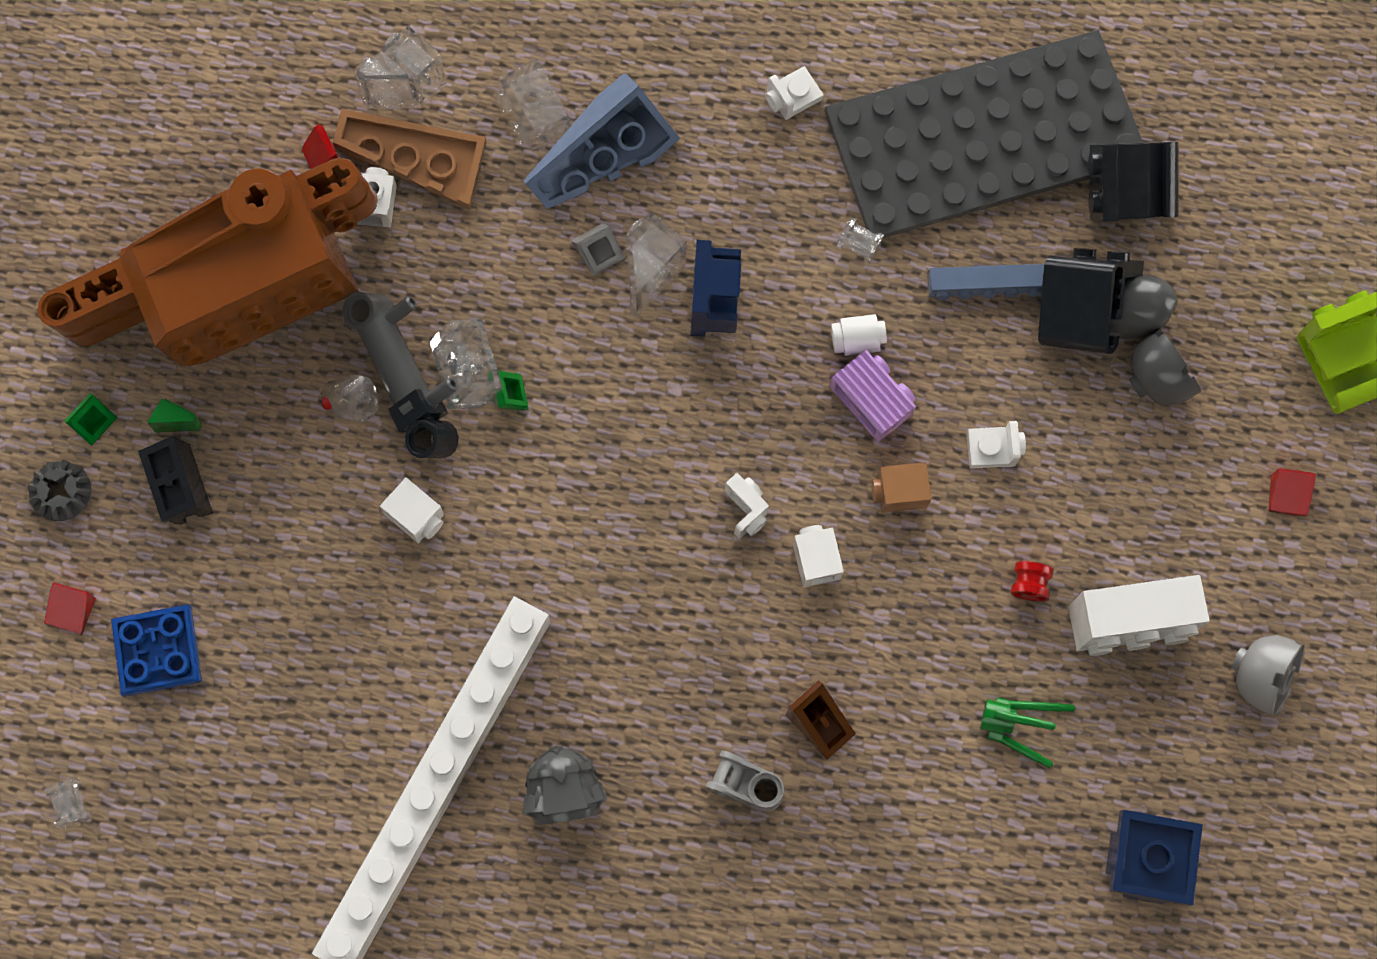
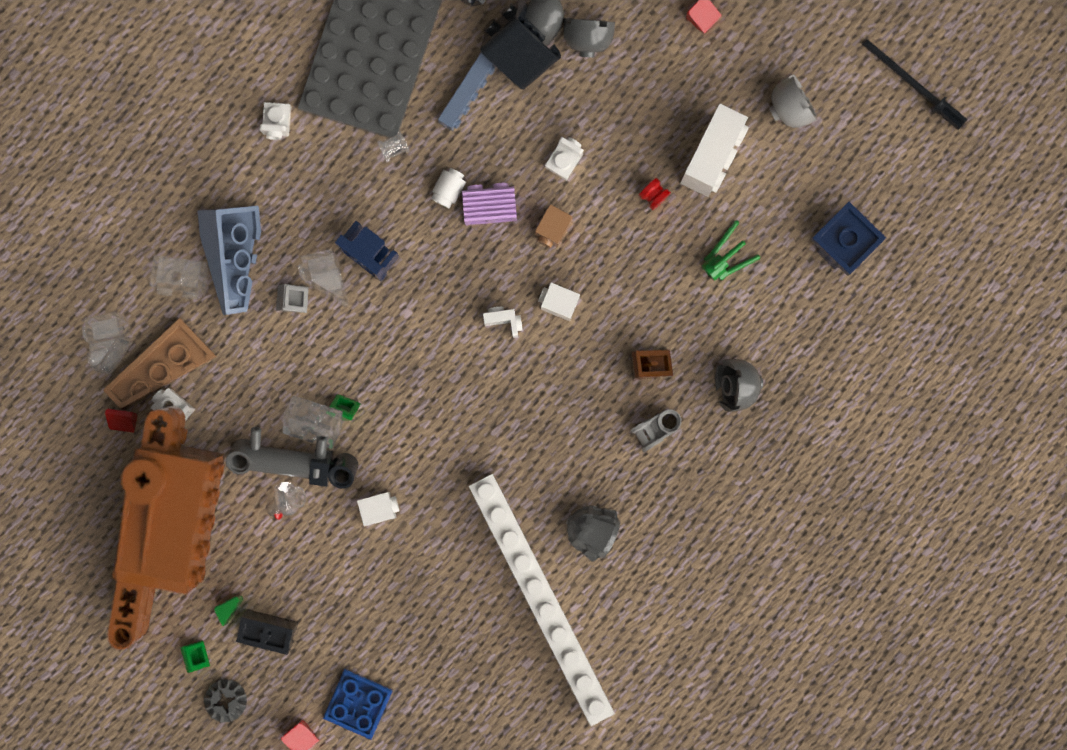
camera: 50 degrees left, 10 degrees up
(875, 847) = (739, 384): none -> dark grey cylinder

